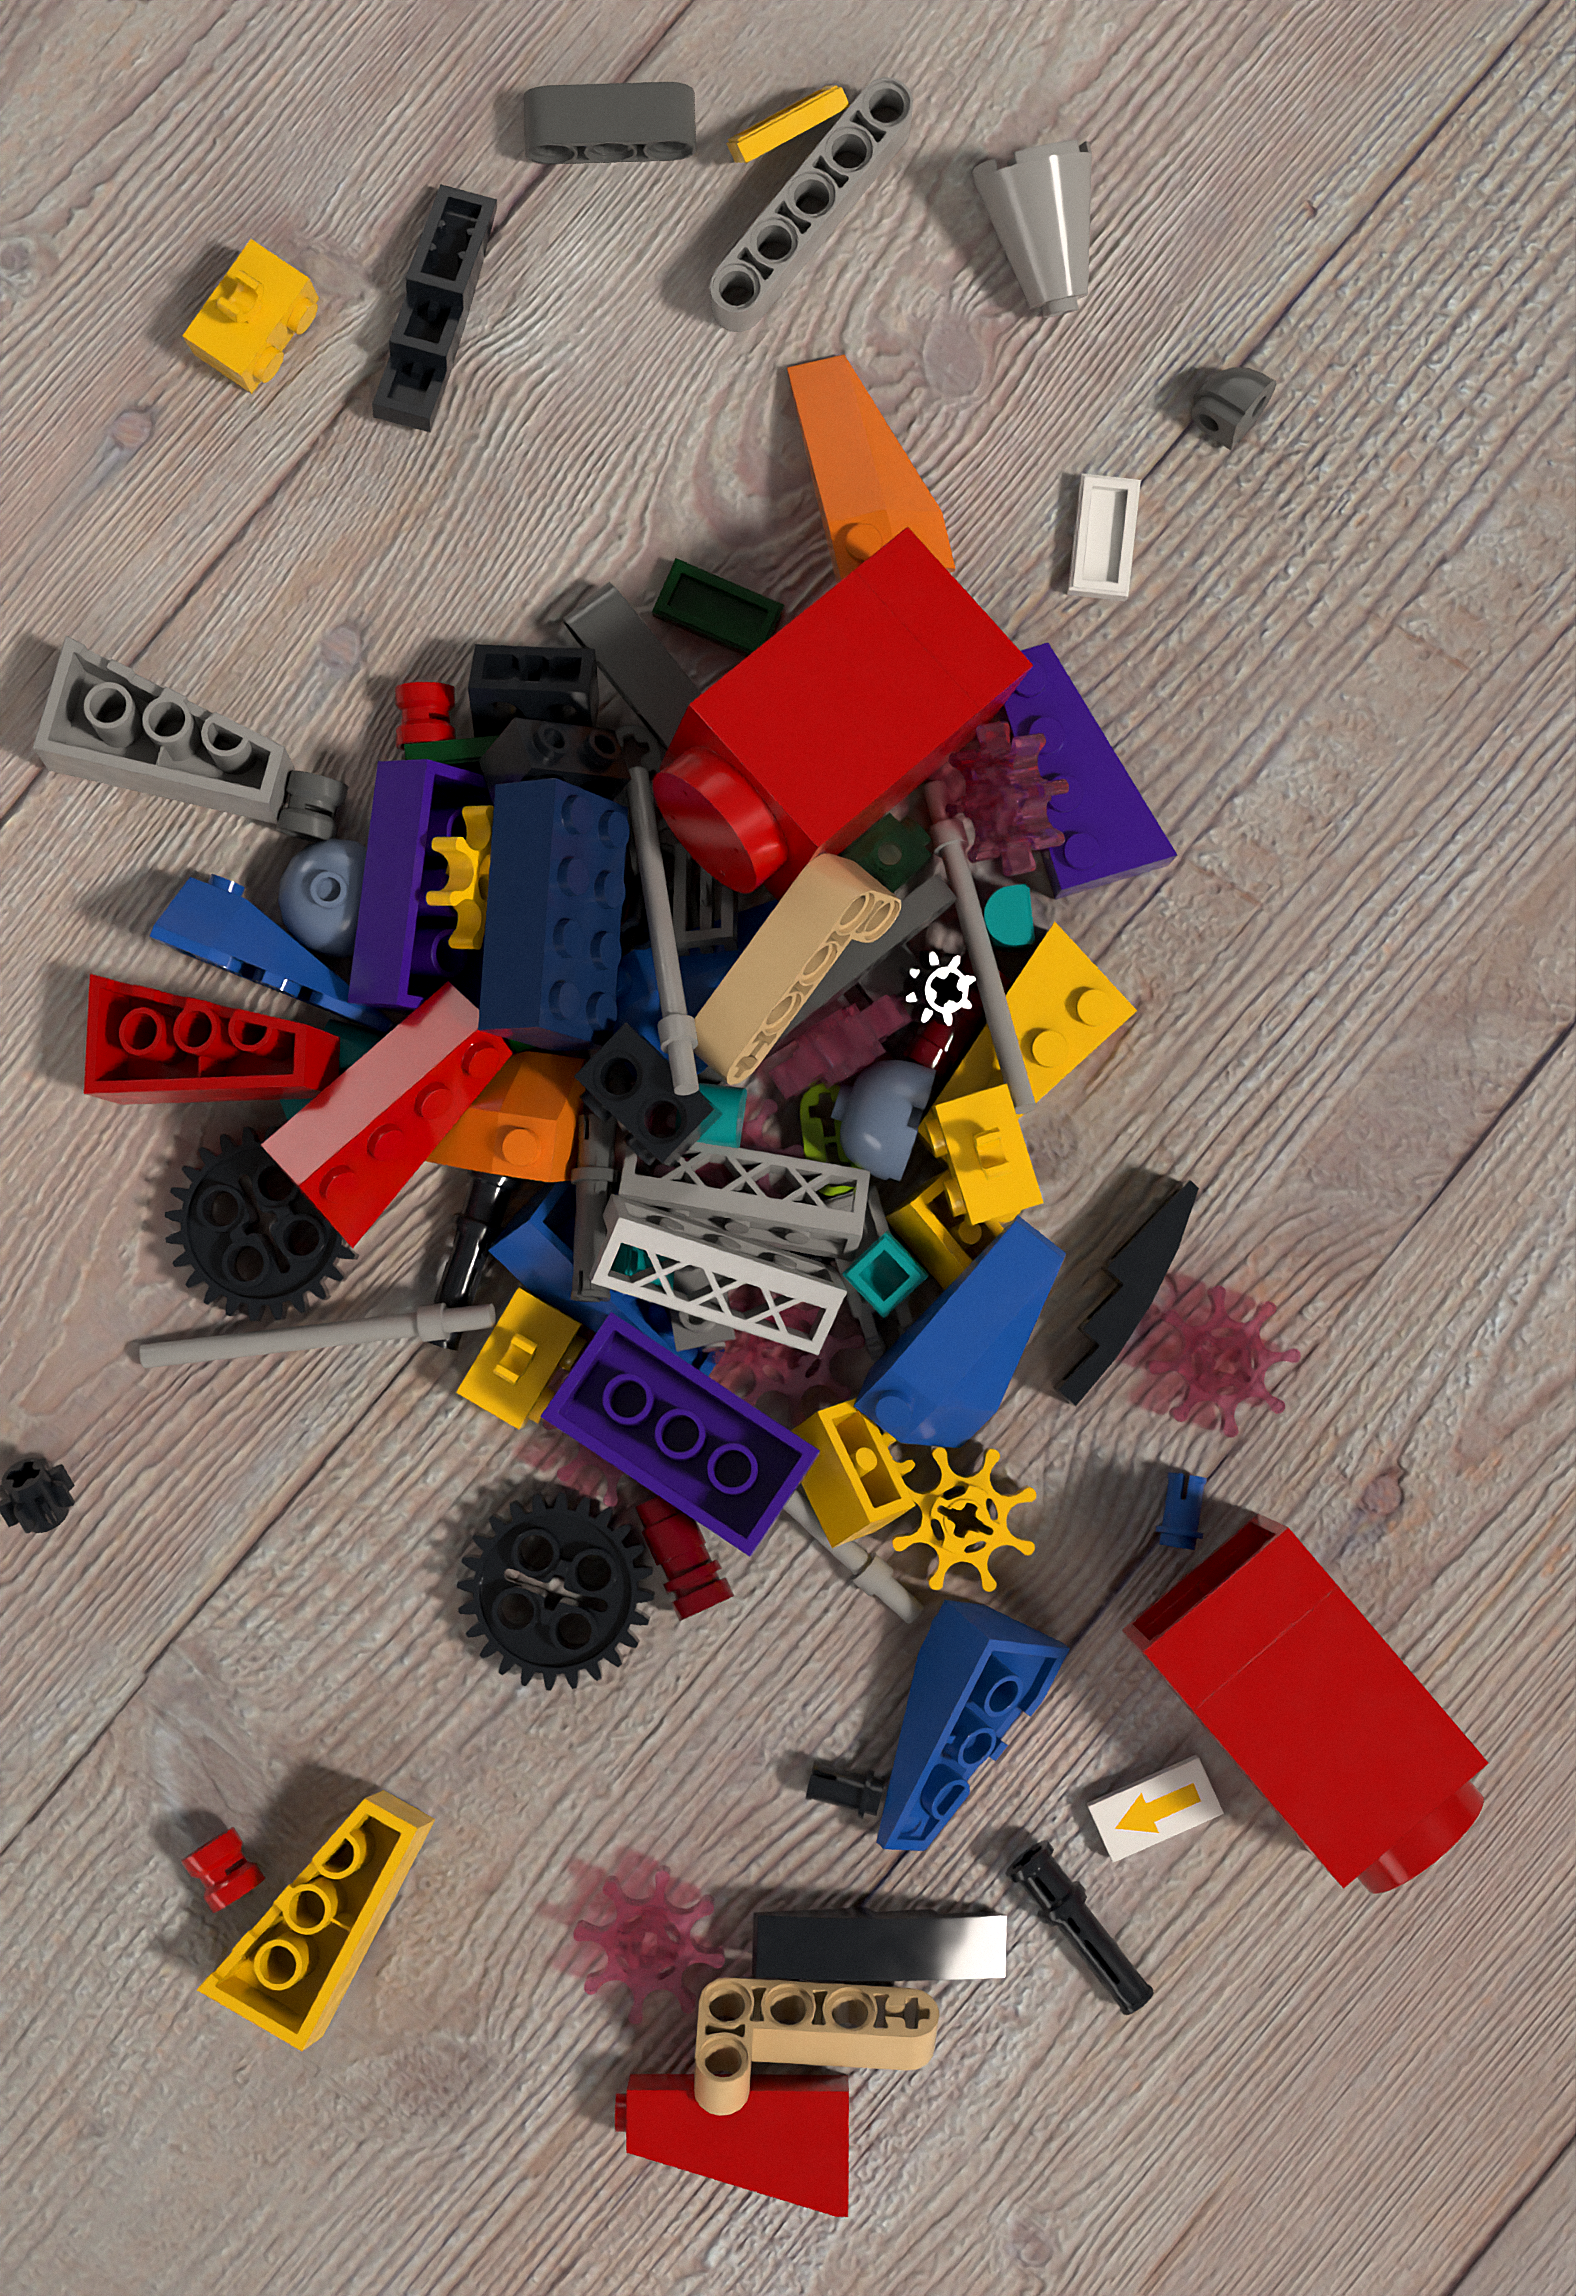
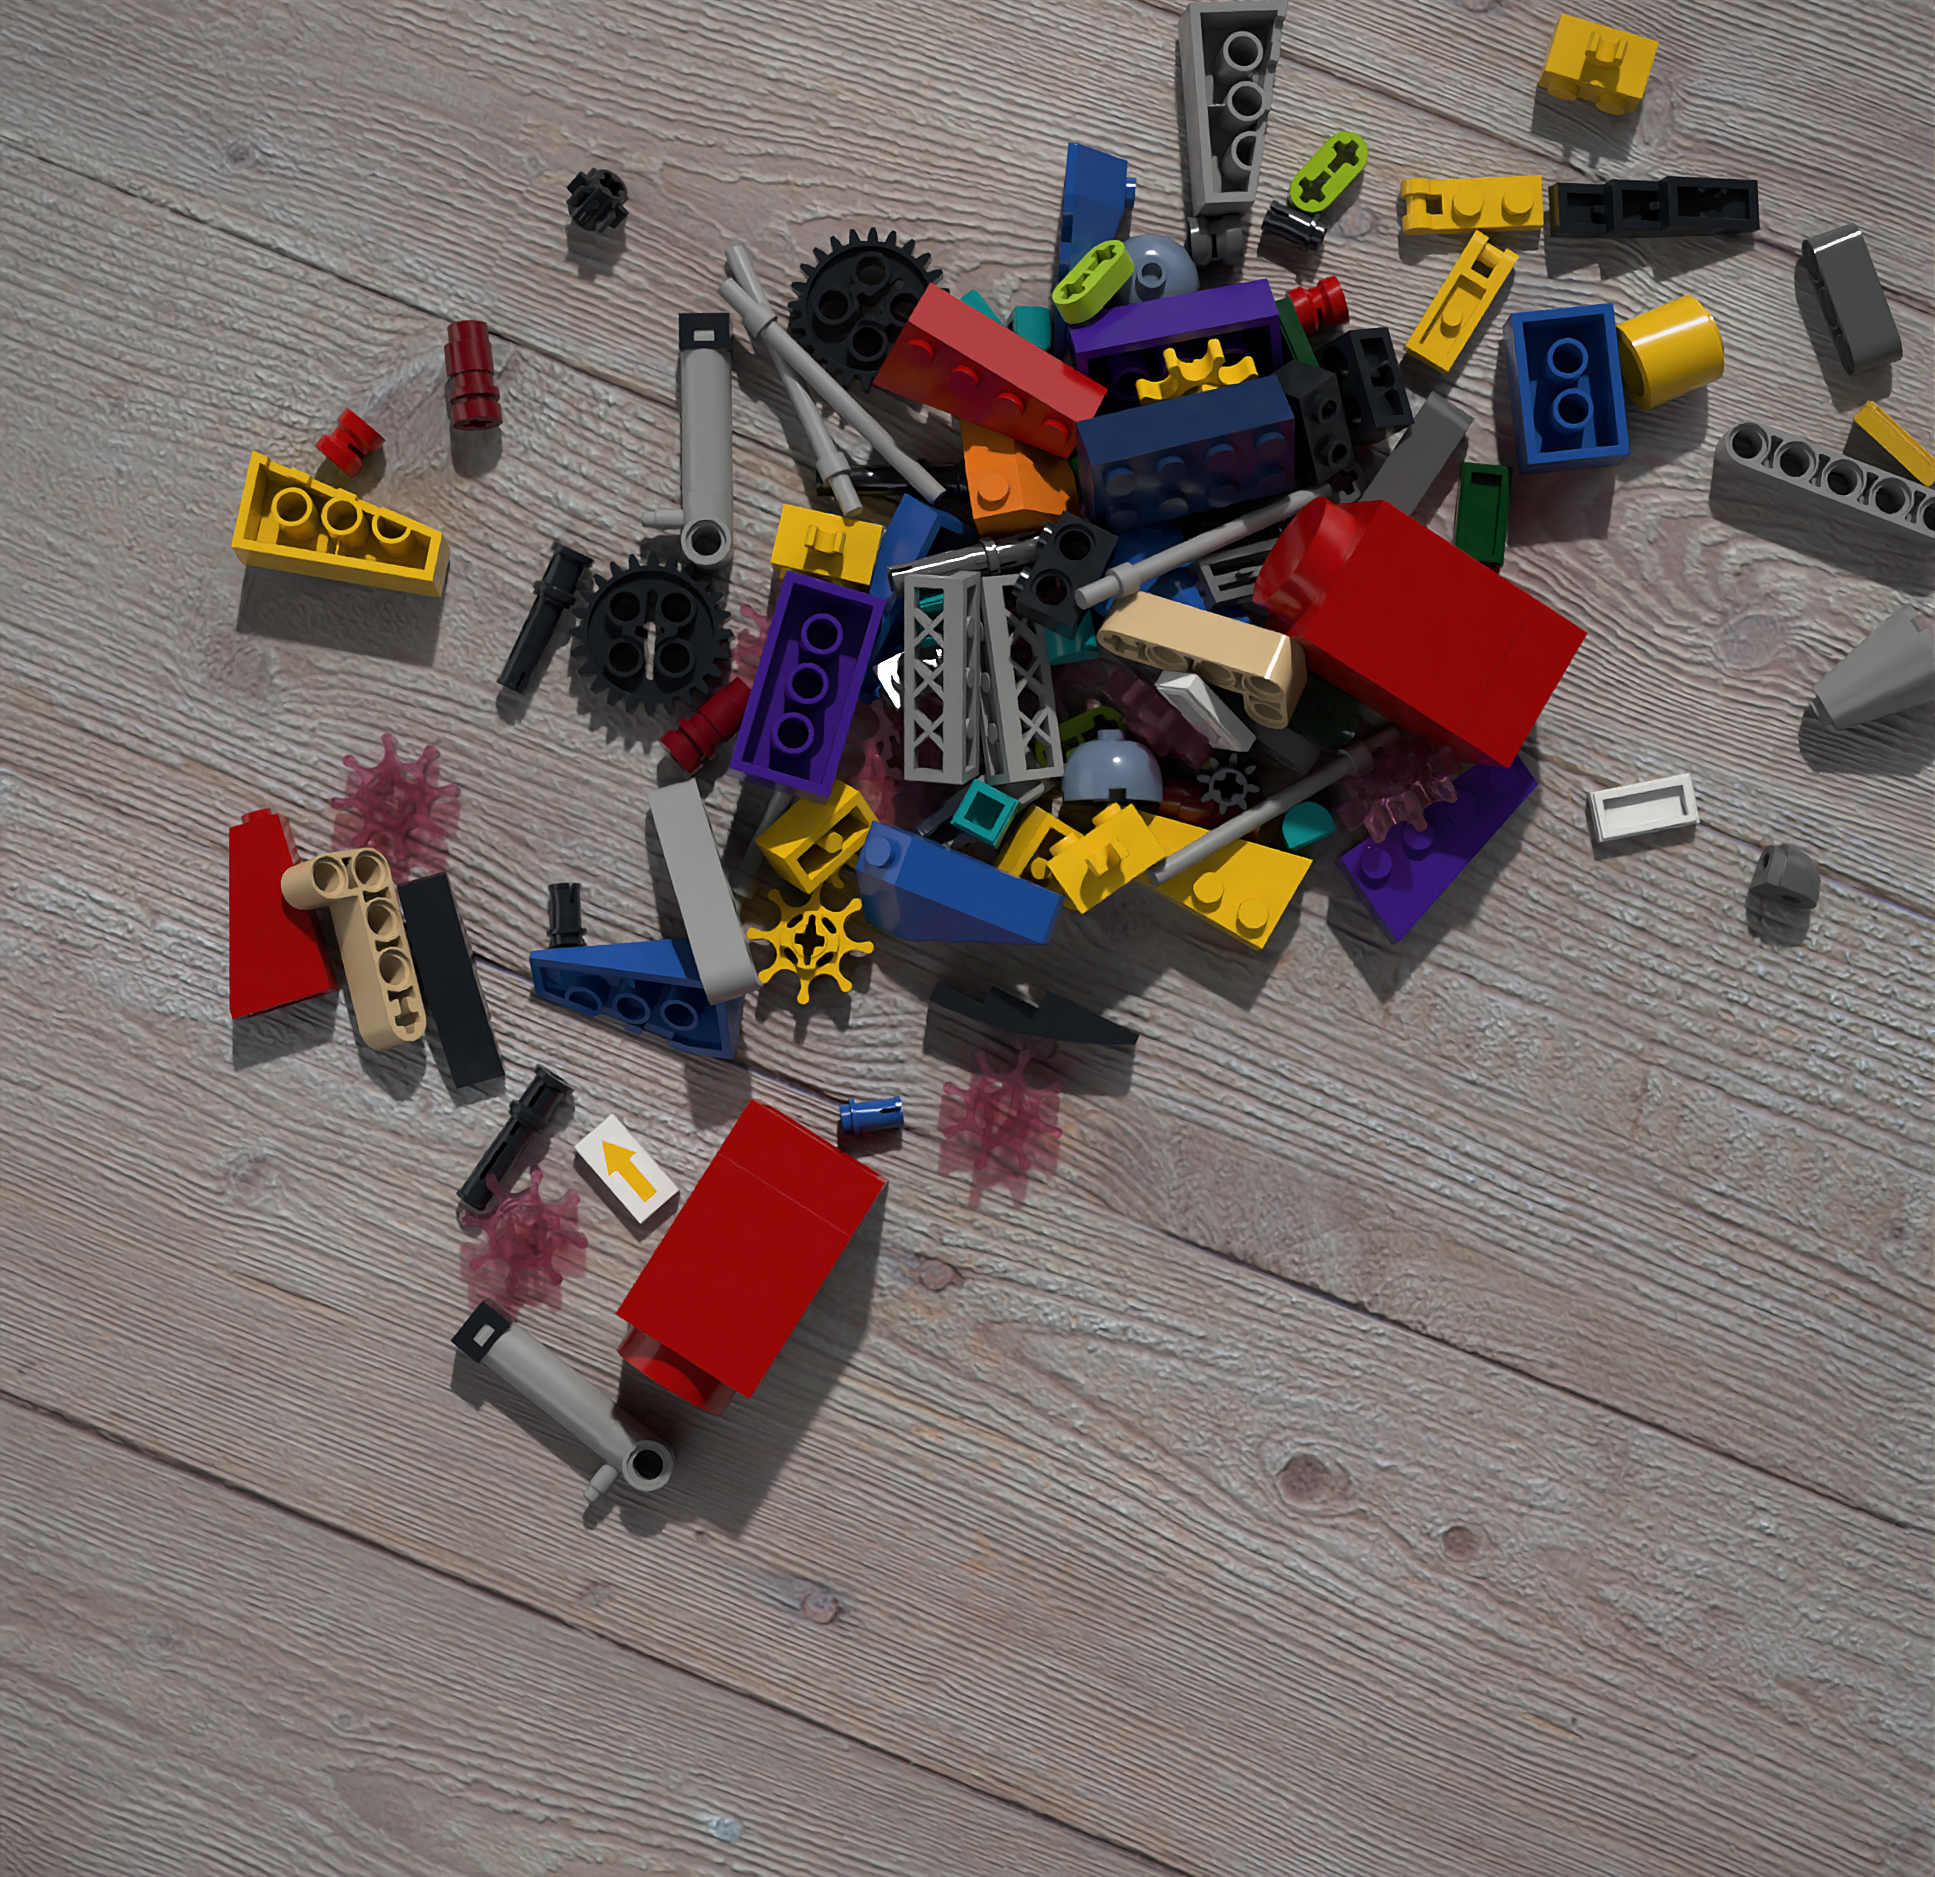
camera: 75 degrees right, 0 degrees up
(184, 1701) = (472, 371): none -> dark red axle
(188, 1050) = (988, 205): red wedge -> none
(239, 1351) = (762, 323): none -> light grey bar
(266, 664) = (1319, 167): none -> lime beam
(318, 959) = (1093, 281): none -> lime beam
(325, 712) = (1295, 226): none -> black pin
(351, 1456) = (706, 440): none -> light grey piece
(365, 506) = (1473, 205): none -> yellow plate
(473, 557) = (1459, 304): none -> yellow plate
(474, 1689) = (553, 596): none -> black pin
(604, 343) = (1669, 352): none -> yellow piece
(609, 469) = (1565, 389): none -> blue brick
(853, 988) = (1205, 711): none -> white tile
(860, 469) = (1632, 596): orange wedge -> none
(875, 1626) = (703, 891): none -> light grey beam
(1208, 1965) = (542, 1217): none -> clear pink gear
(1398, 1959) = (567, 1397): none -> light grey piece

